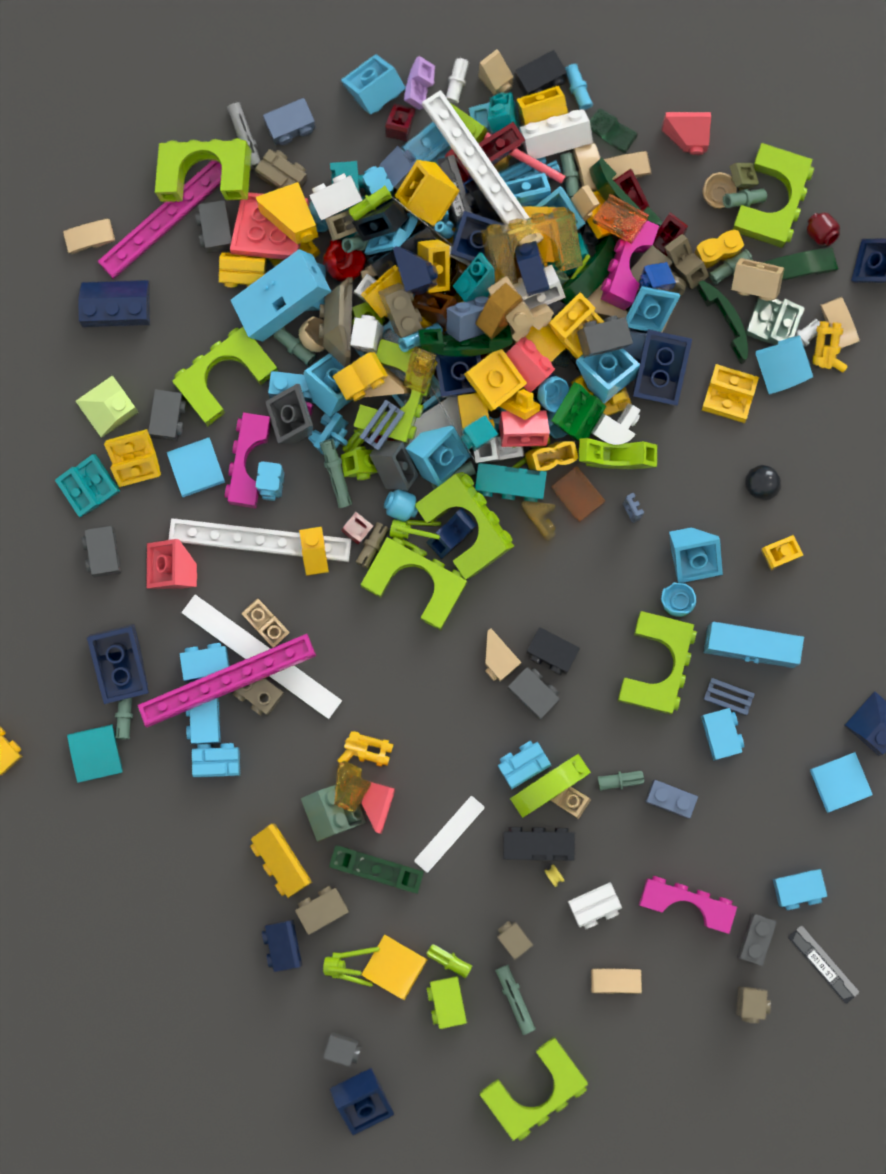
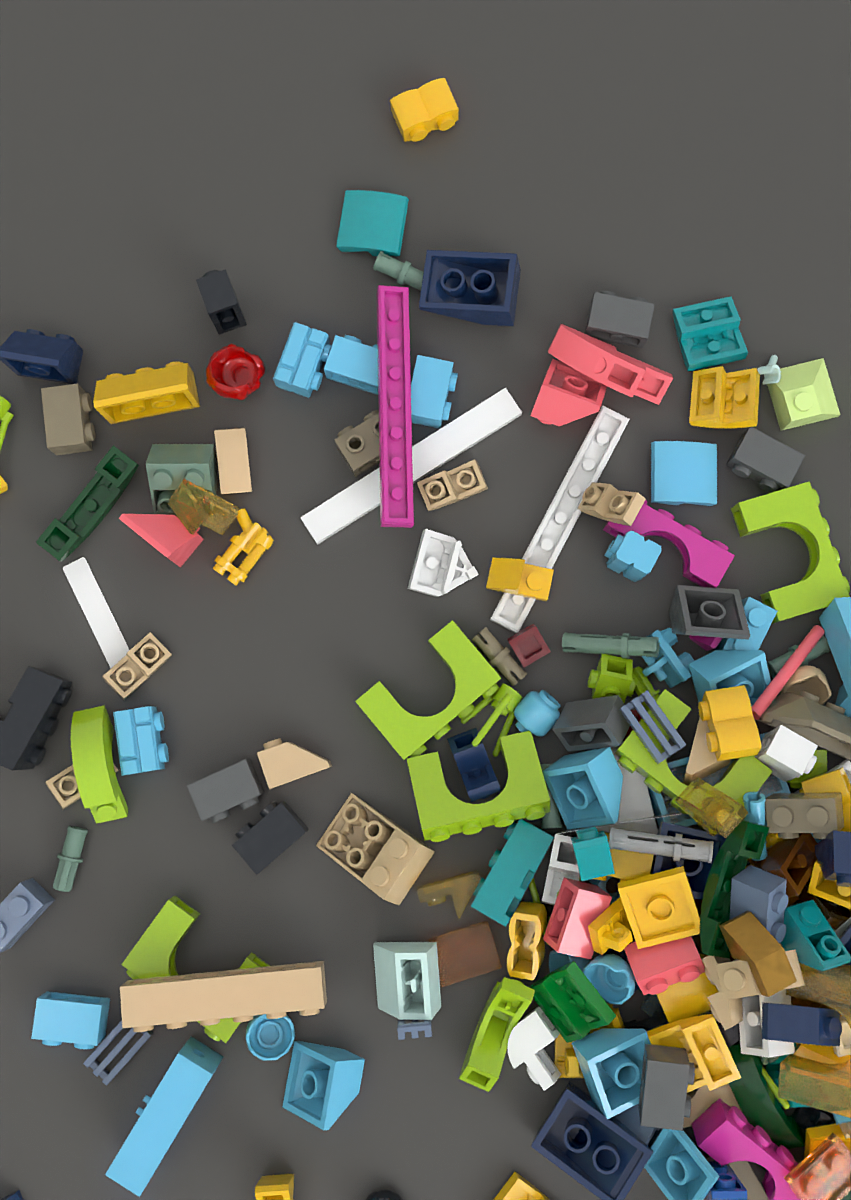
camera: 110 degrees right, 0 degrees up
(102, 433) = (771, 371): none -> light aqua hand
(141, 546) = (609, 366): none -> coral slope
(196, 833) = (221, 301): none -> black brick
(239, 507) = (610, 504): none -> tan slope
(244, 804) = (234, 372): none -> red hair
(306, 781) = (233, 460): none -> tan slope
(308, 350) = (786, 671): none -> coral bar
(324, 610) = (439, 565): none -> white slope
(456, 393) = (661, 845): none -> light grey pin
(474, 789) = (137, 666): none -> tan slope
(533, 579) = (375, 849): none -> tan slope
(607, 524) = (407, 979): none -> light aqua slope
(662, 635) = (223, 995): none -> tan brick

